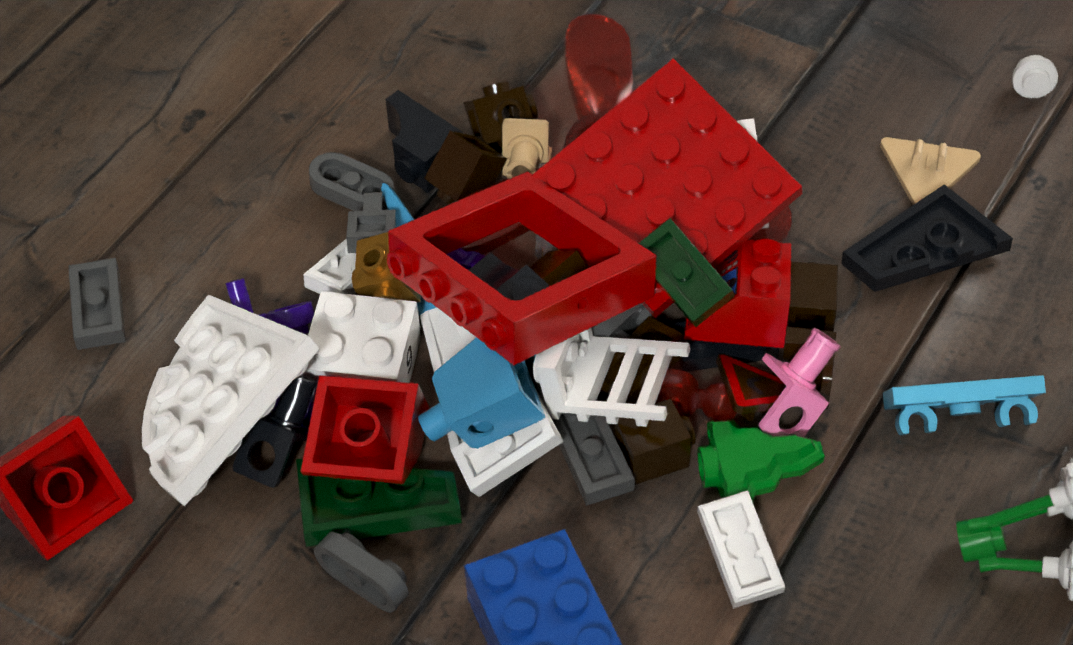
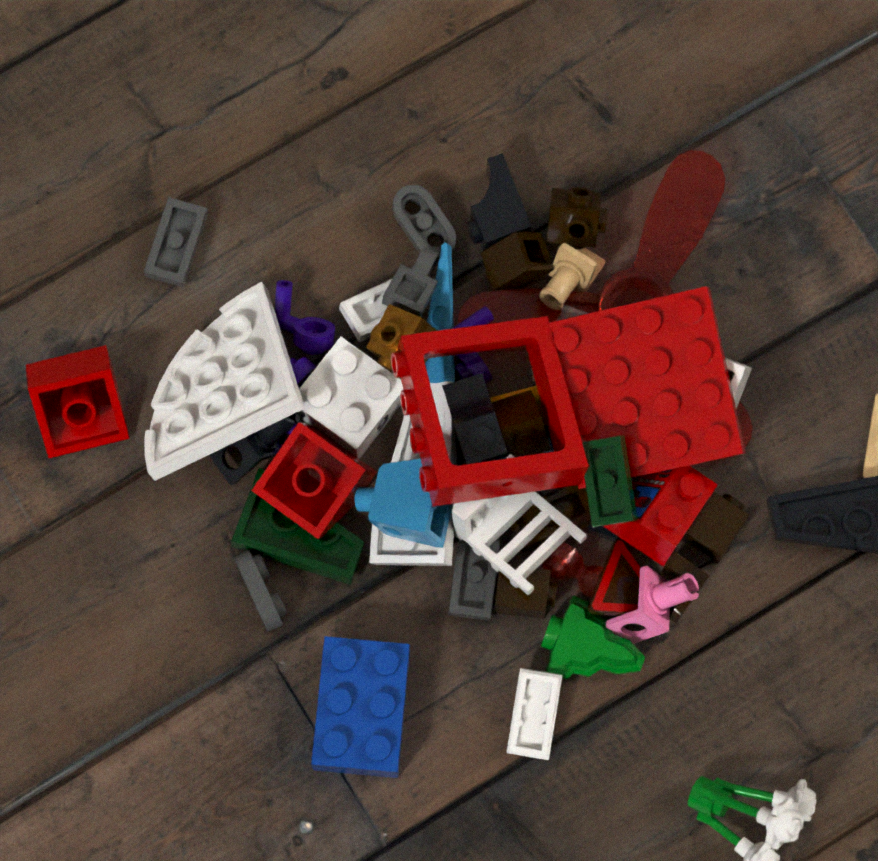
camera: 25 degrees right, 25 degrees up
(965, 399) = (776, 675): medium azure plate -> none

